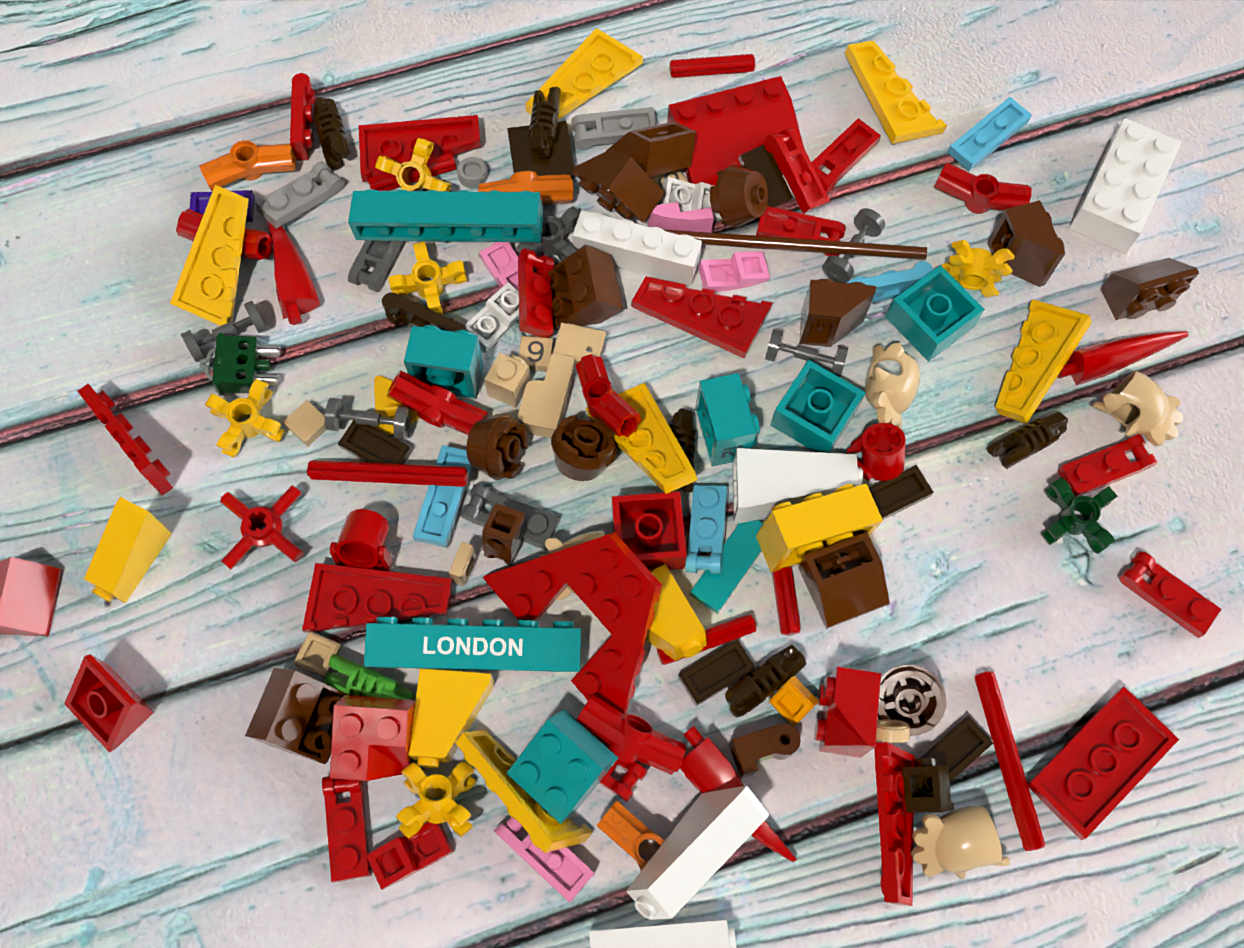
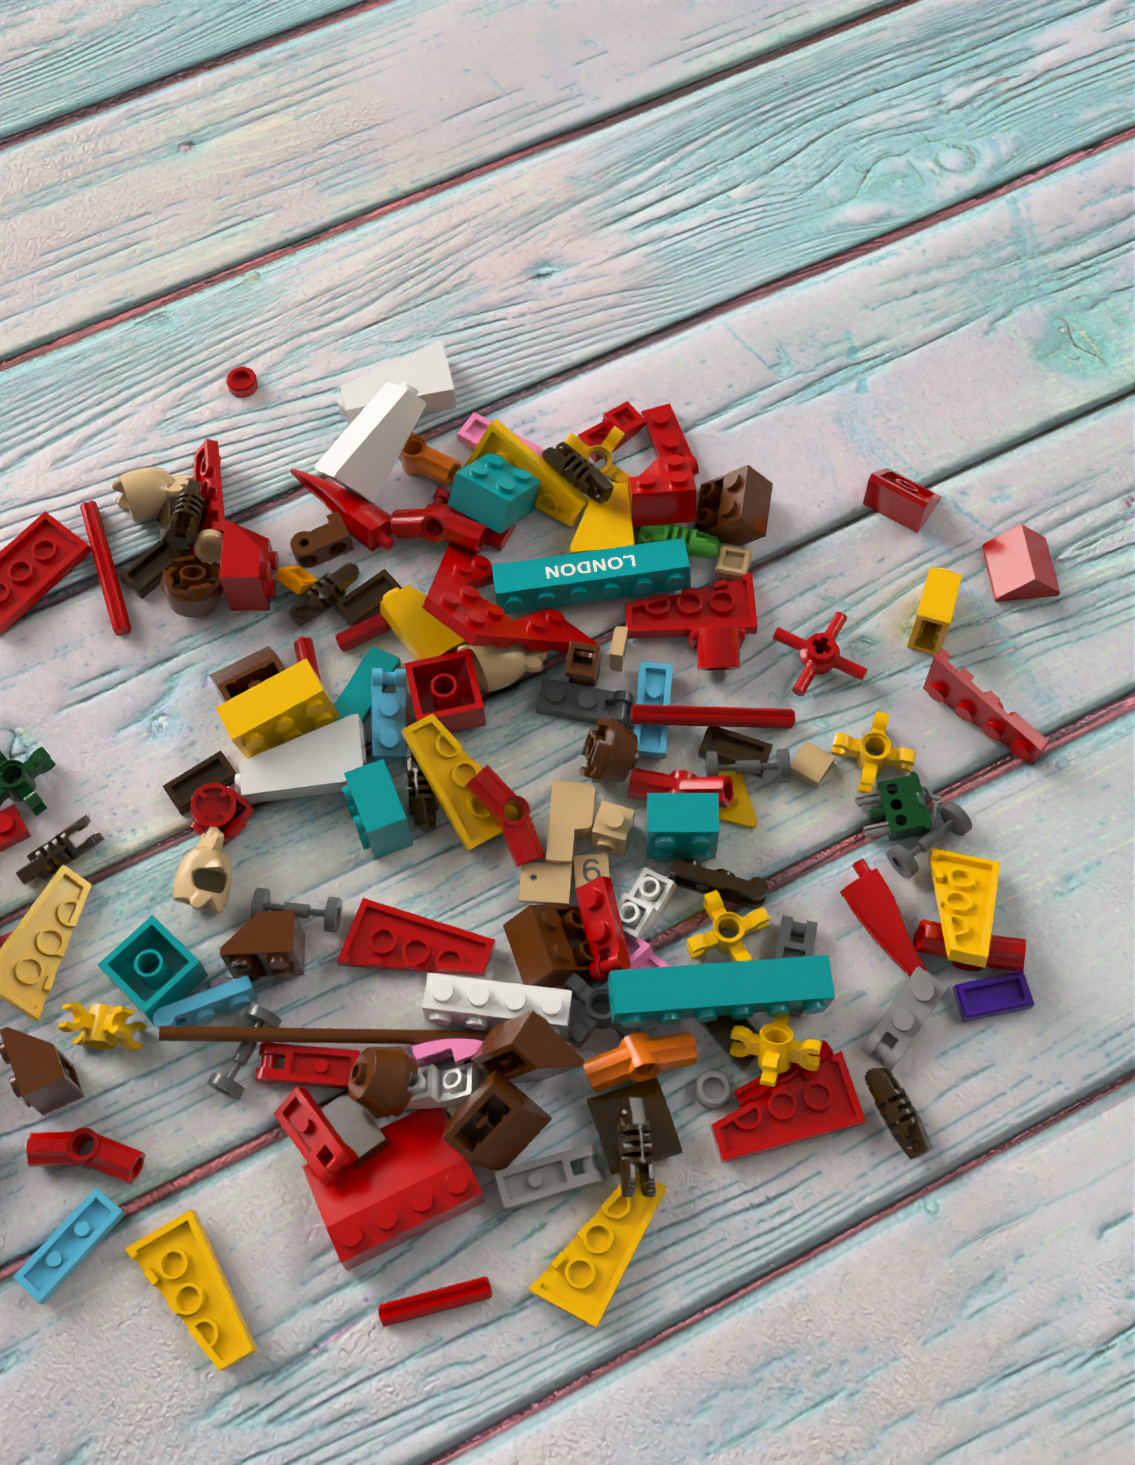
camera: 175 degrees right, 5 degrees down
(248, 162) = (999, 1039): orange piece -> none
(301, 116) = (940, 1125): red plate -> none
(460, 767) = (578, 472): none -> dark brown hinge
(583, 448) = (522, 760): reddish brown cone -> none
(739, 272) = (383, 1004): bright pink slope -> none
(817, 408) = (282, 841): teal brick -> none
(845, 153) = (257, 1183): red plate -> none
(918, 776) = (187, 513): none -> dark brown hinge

